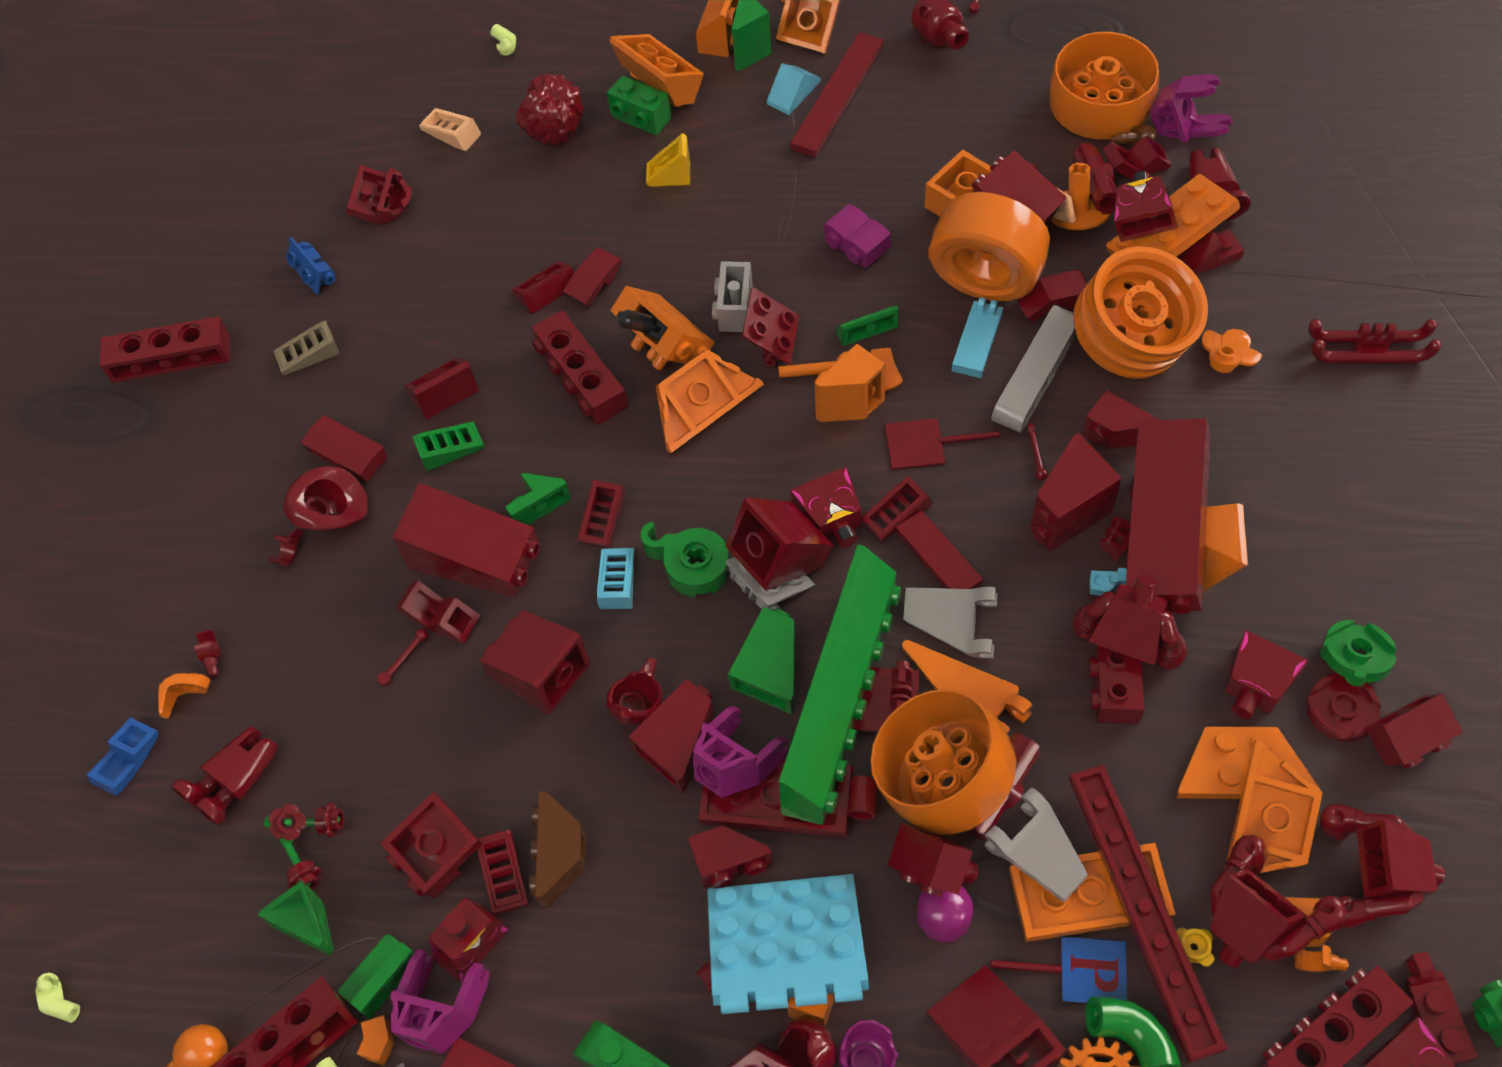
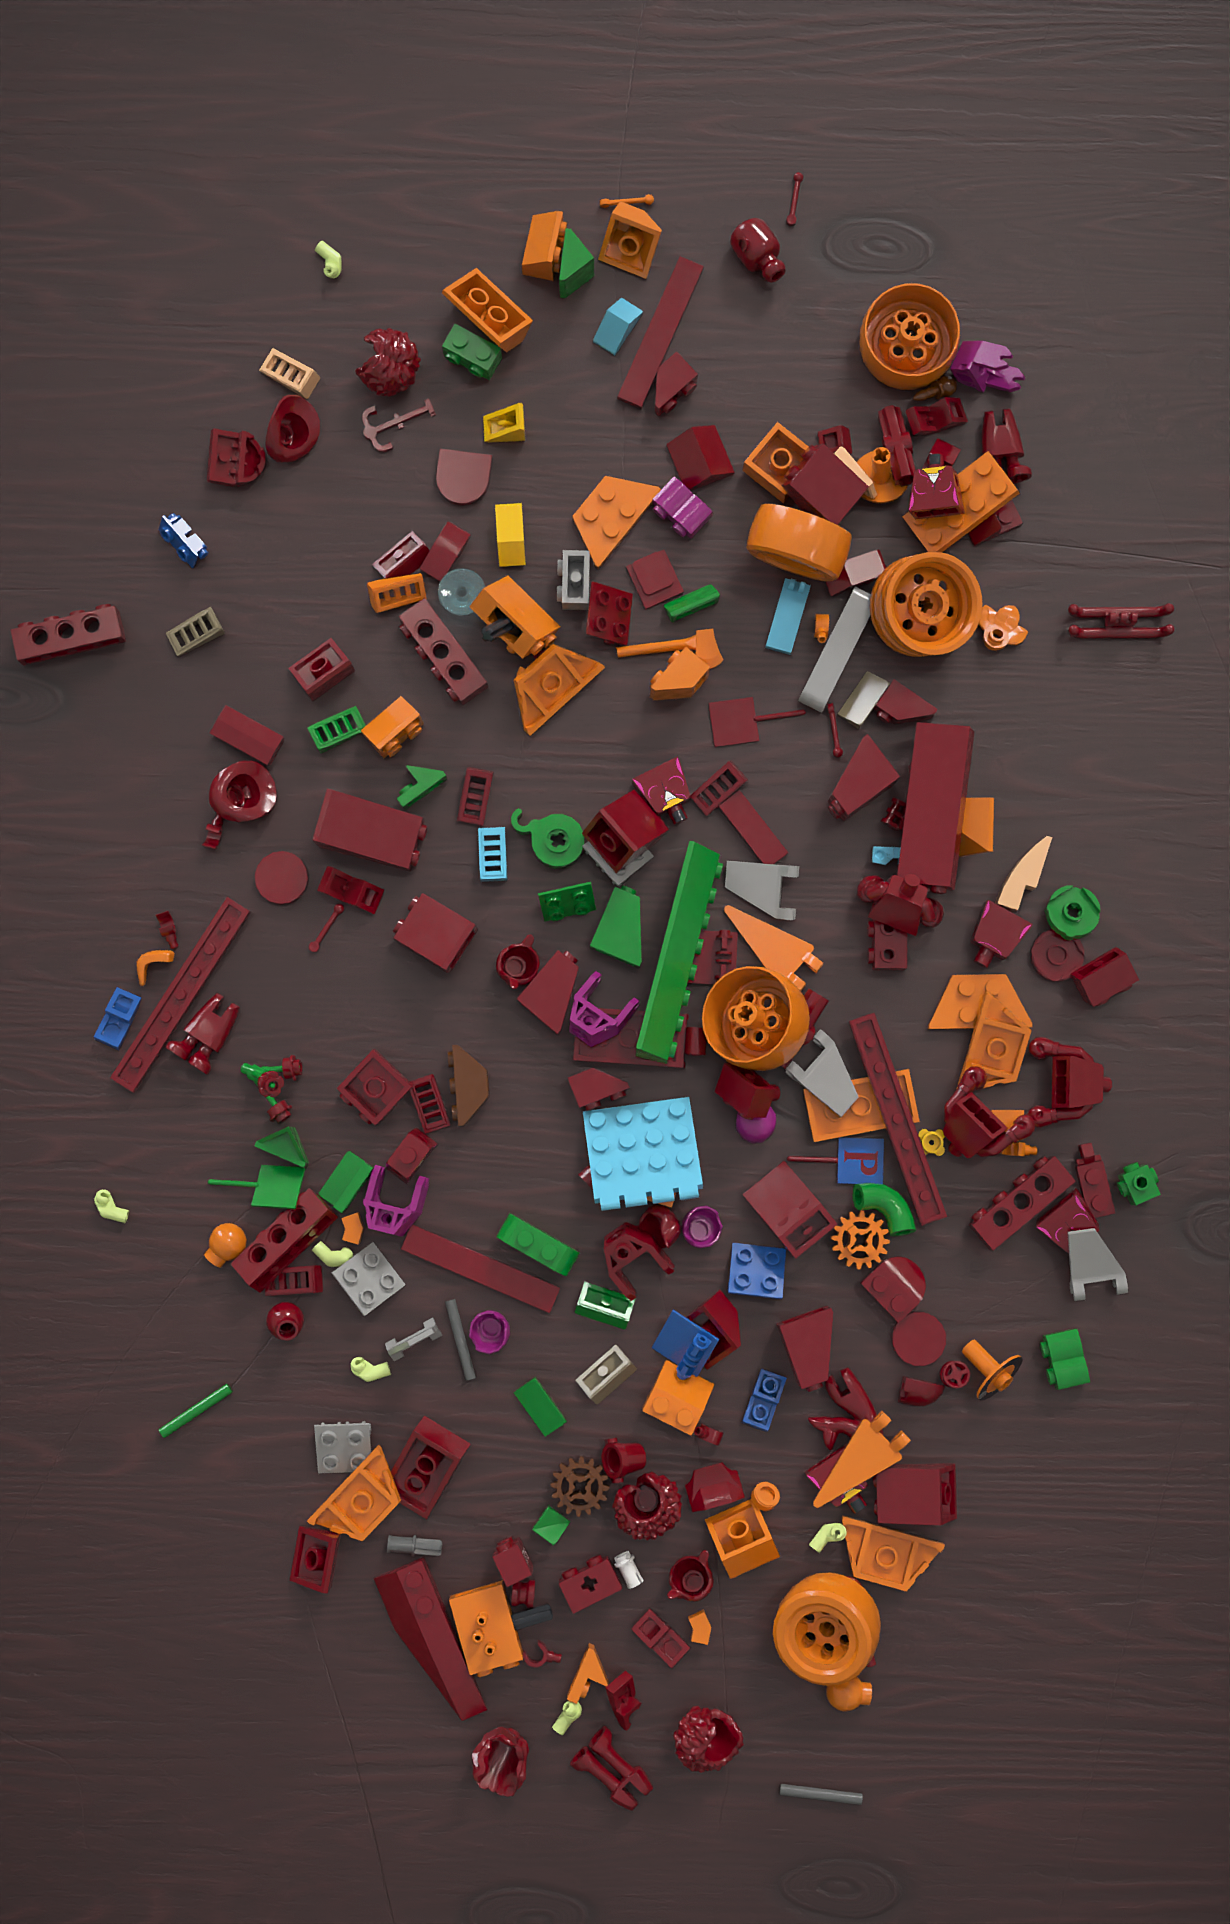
camera: 10 degrees left, 25 degrees up
(203, 731) = (180, 995): none -> dark red plate
(278, 978) = (274, 1188): none -> green piece
(357, 599) = (281, 877): none -> dark red tile
(440, 167) = (292, 429): none -> dark red hat
(507, 305) = (395, 583): none -> orange slope
(512, 439) = (393, 727): none -> orange slope
(527, 177) = (370, 432): none -> piece
(596, 310) = (454, 582): none -> clear light blue piece
(620, 211) = (463, 475): none -> tile
(665, 260) = (510, 534): none -> yellow slope
(702, 623) = (567, 902): none -> green hinge
(779, 245) = (611, 514): none -> orange wing
(824, 304) = (654, 579): none -> dark red piece
(850, 128) = (673, 380): none -> dark red slope
(878, 192) = (700, 457): none -> dark red slope
(1017, 346) = (821, 627): none -> orange piece
(1068, 420) = (863, 699): none -> slope
(1290, 605) = (1023, 876): none -> light nougat slope

